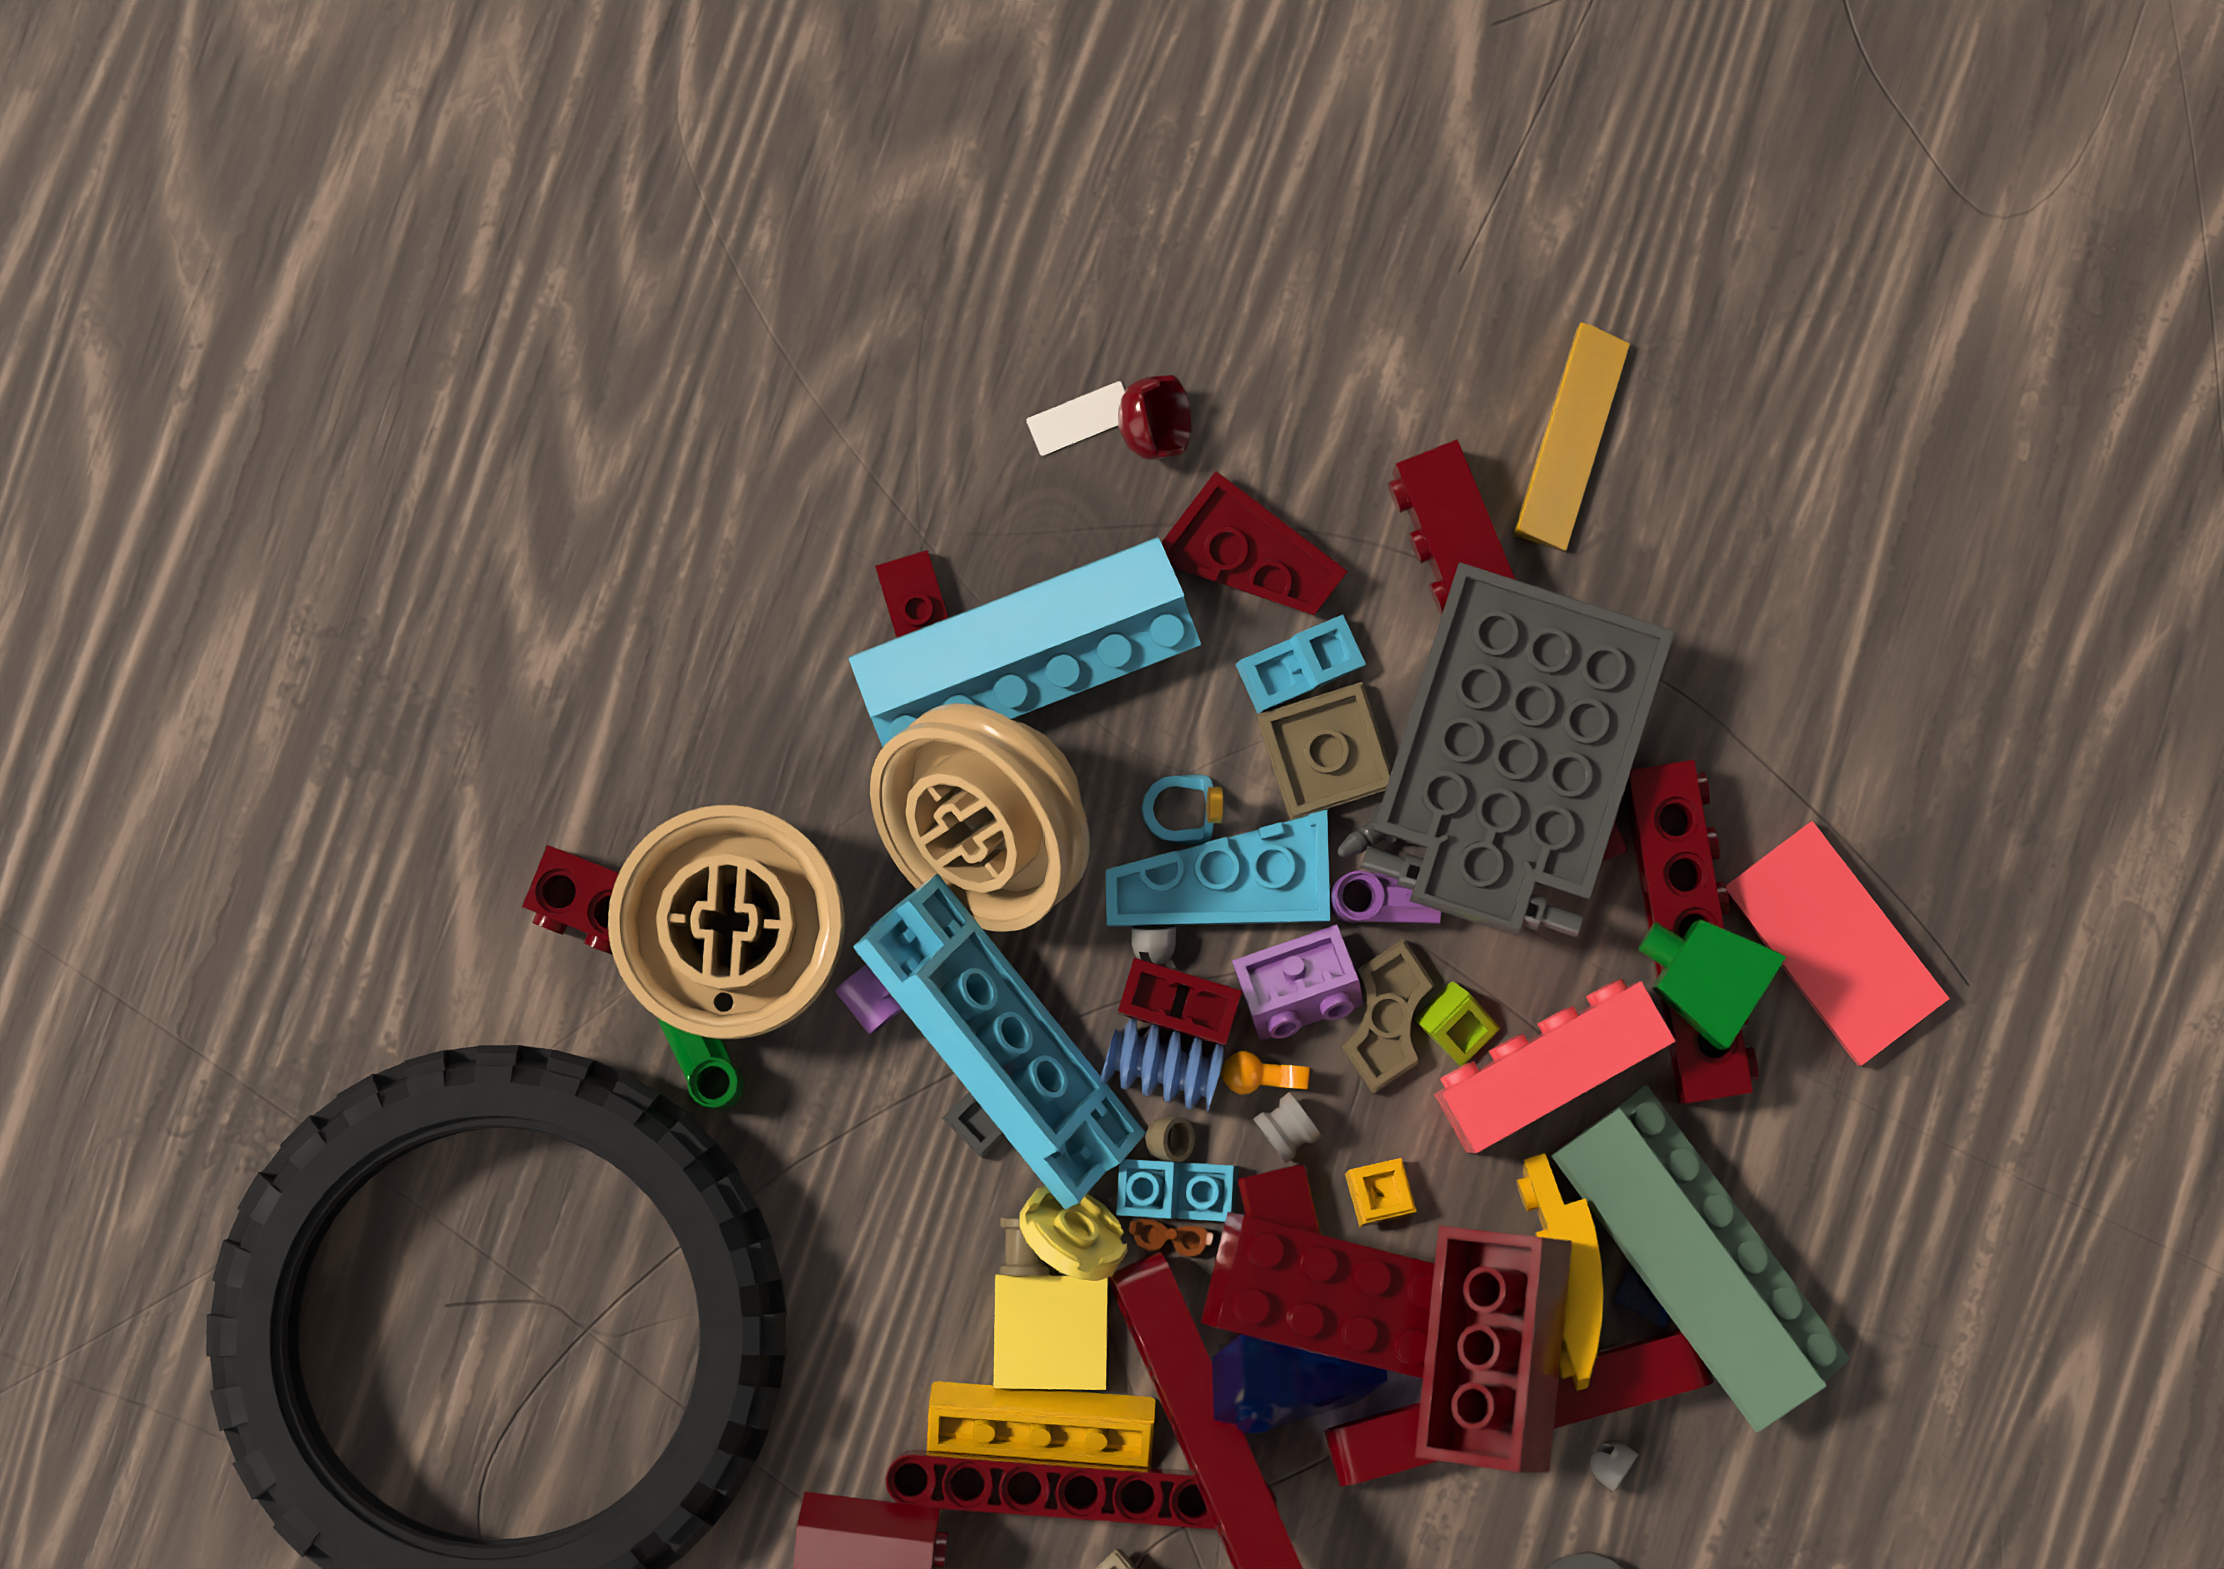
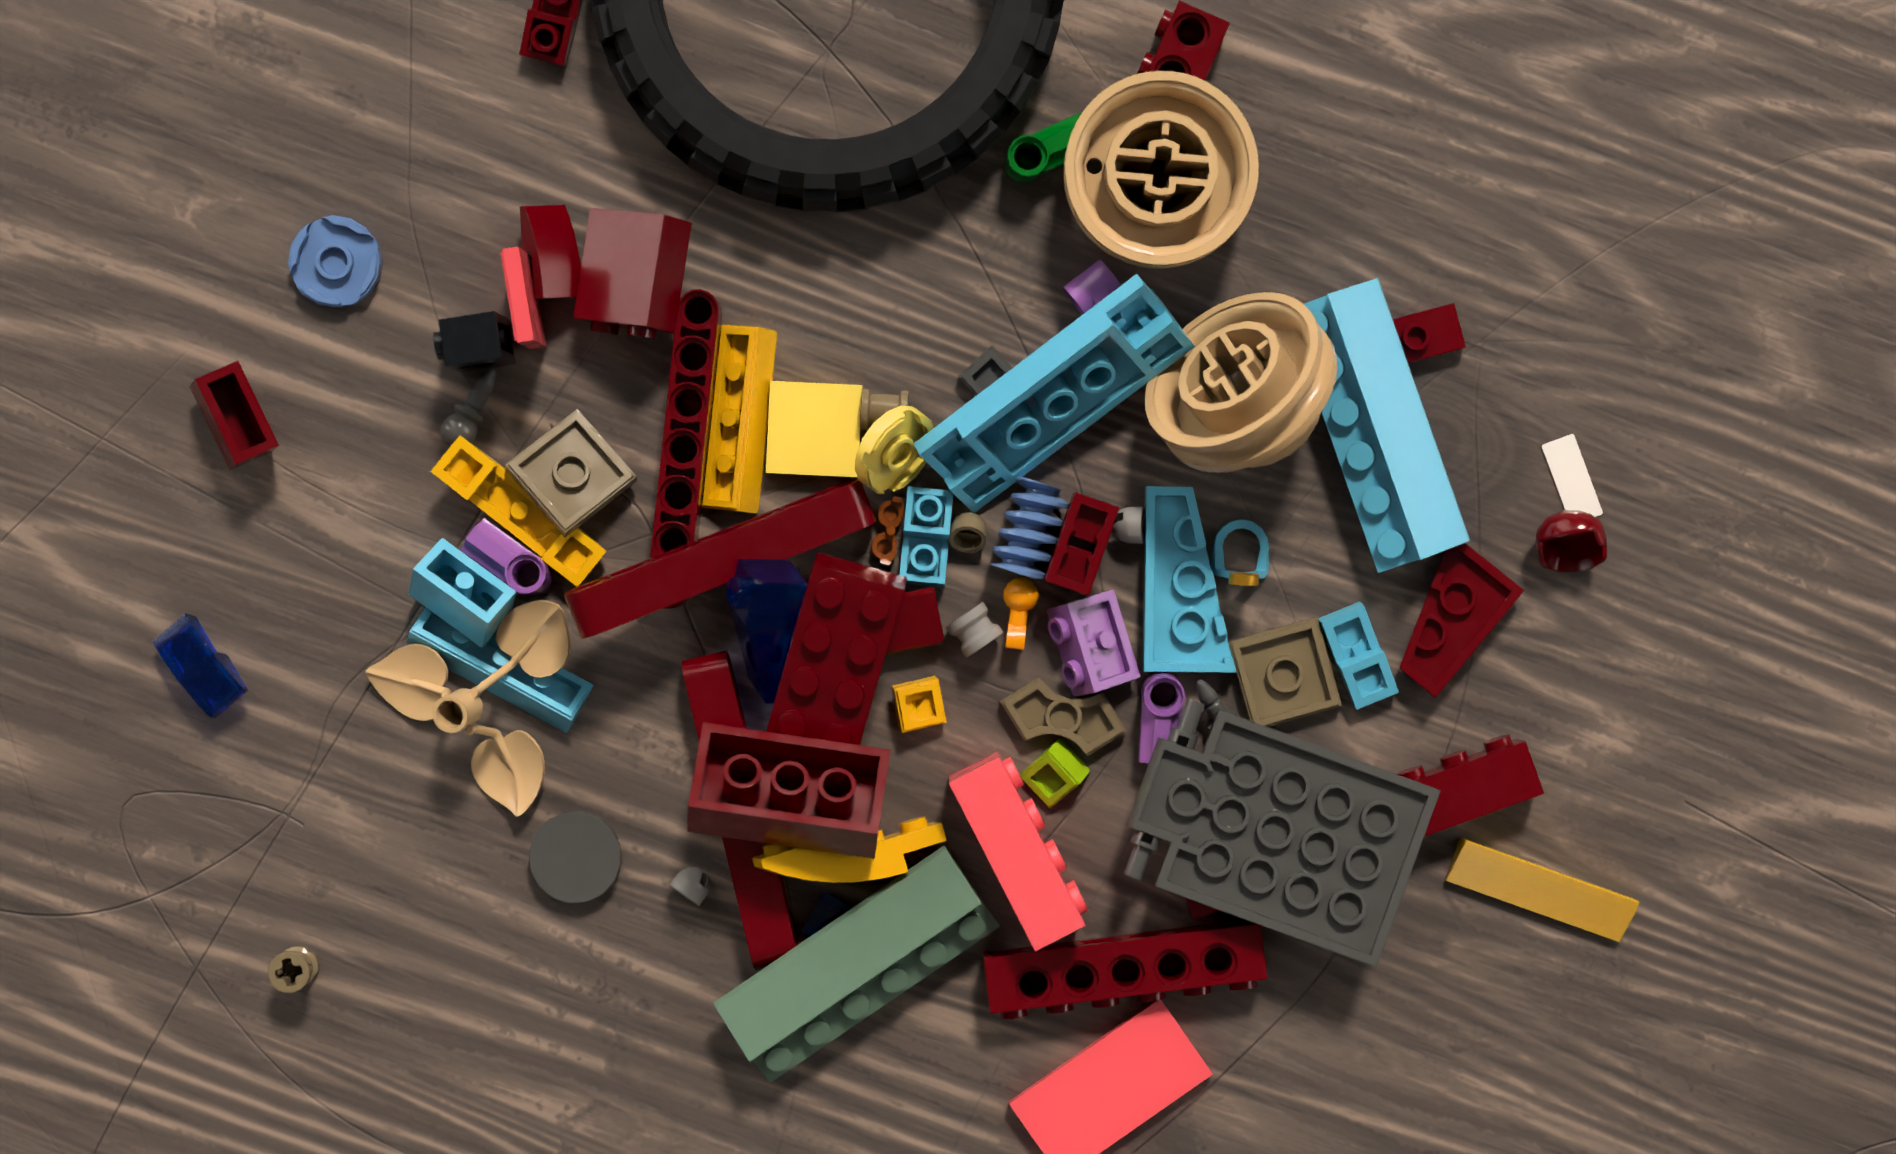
camera: 85 degrees right, 5 degrees up
(1710, 976) = (1087, 983): green torso -> none

